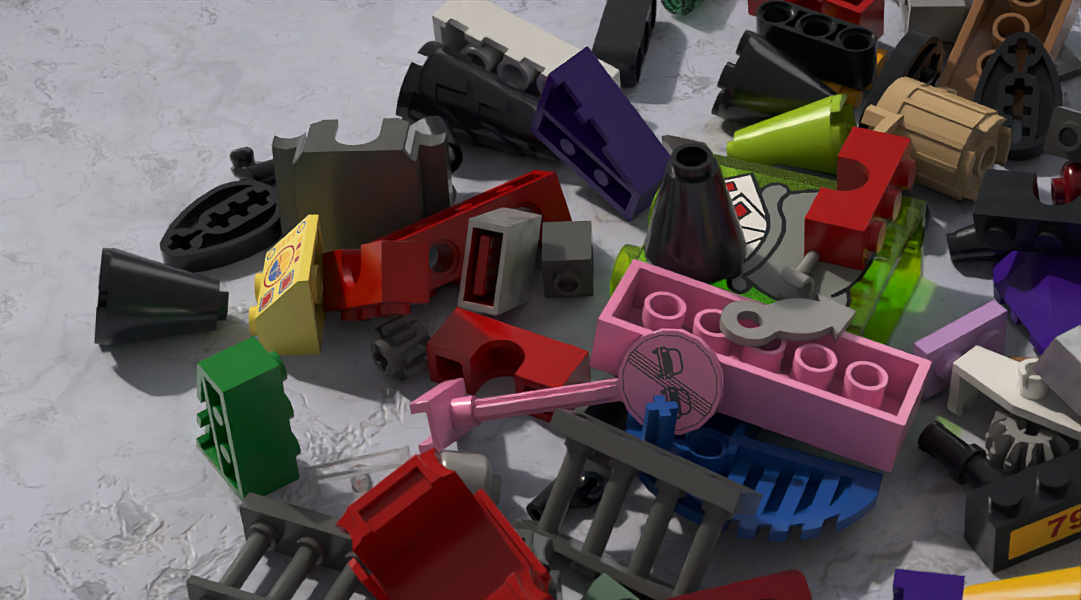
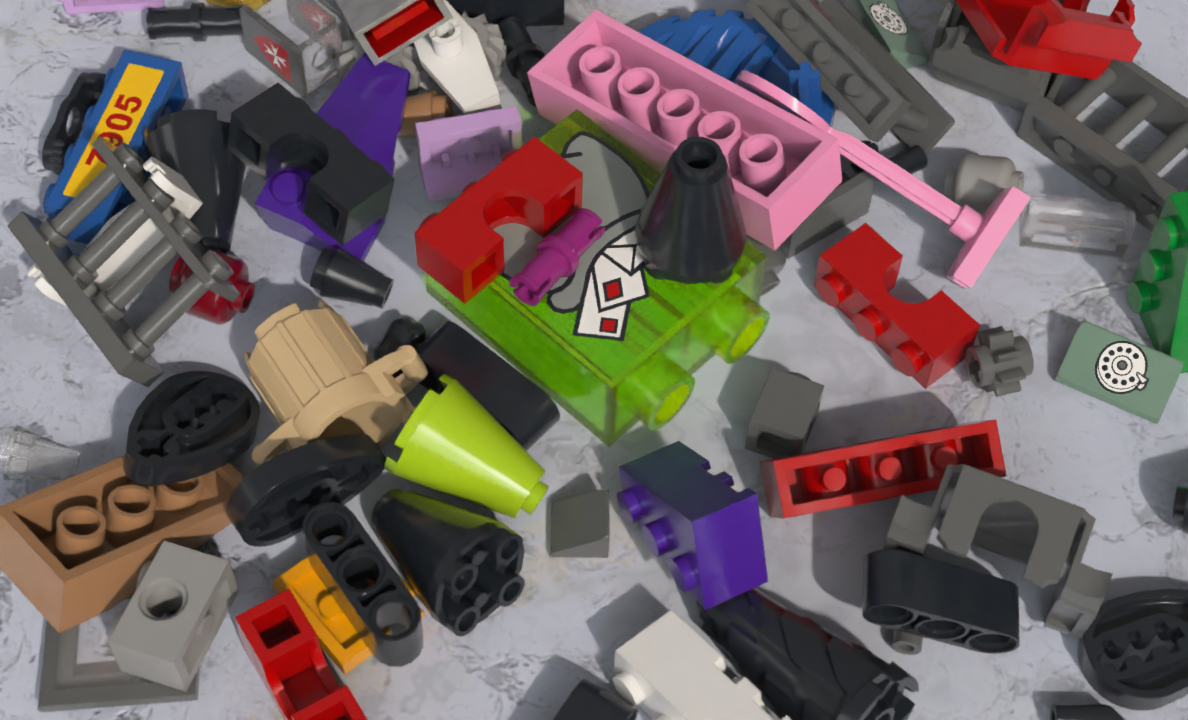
camera: 165 degrees left, 15 degrees up
(291, 293) = (1109, 459): light yellow slope -> none
(317, 394) = (1119, 371): none -> sand green slope
(376, 280) = (1023, 389): red arch -> none
(499, 260) = (873, 381): flat silver piece -> none
(785, 319) = (647, 115): light grey brick -> none
(794, 194) = (557, 256): none -> magenta pin
(797, 280) = (616, 162): light grey hand -> none

